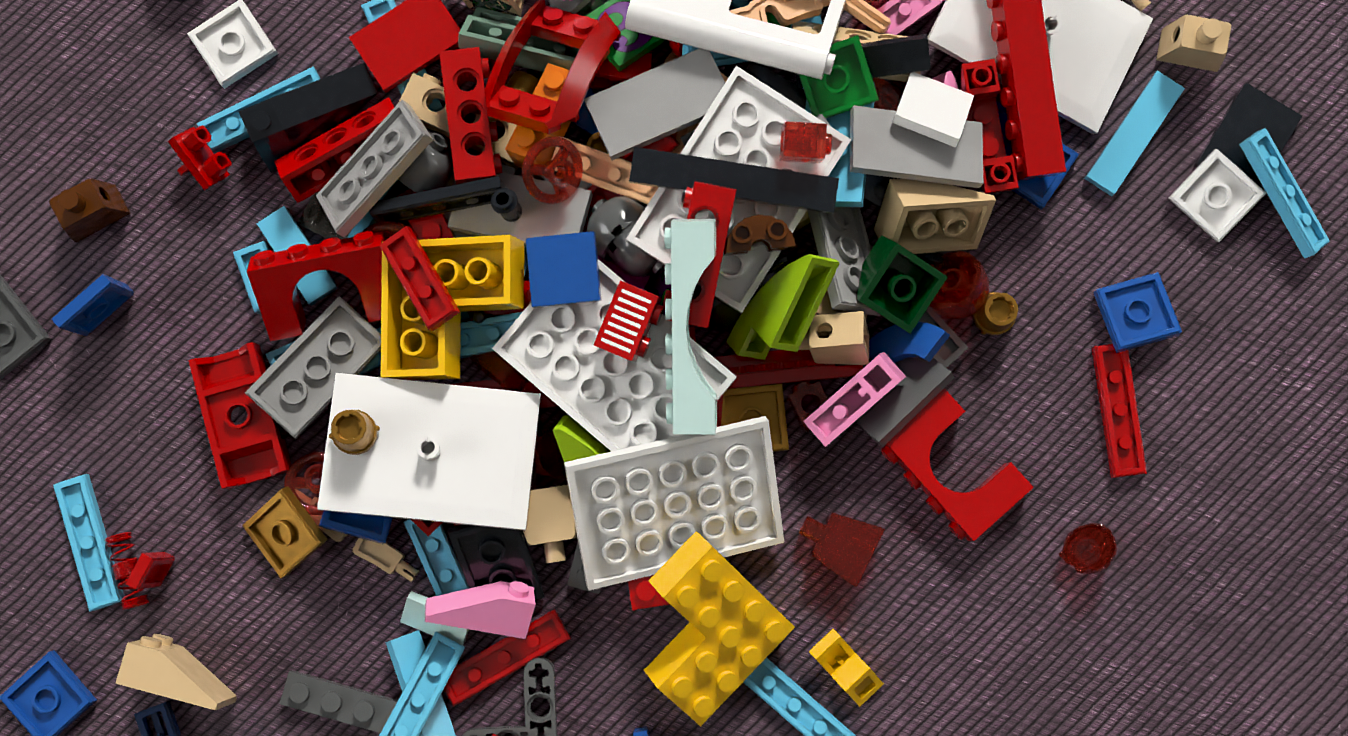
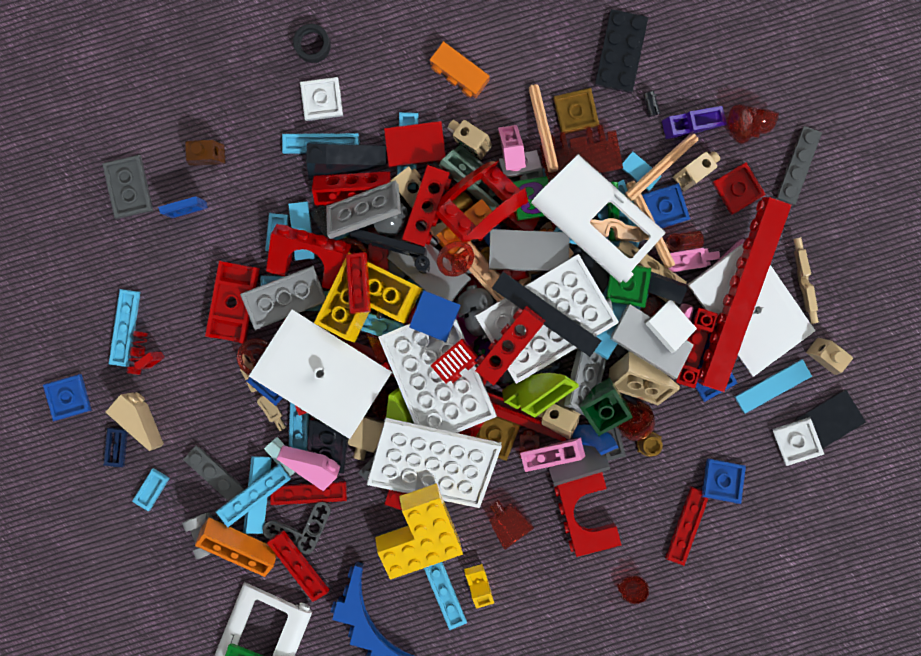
camera: 20 degrees right, 5 degrees up
(199, 158) = (274, 154): red hips -> none
(284, 532) = (226, 374): pearl gold tile -> none
(353, 431) = (286, 346): pearl gold piece -> none
(694, 399) = (505, 345): light aqua arch -> none
(759, 229) = (545, 347): reddish brown cylinder -> none
(804, 142) = (593, 313): clear red brick -> none
(1284, 193) = (833, 458): medium azure tile -> none

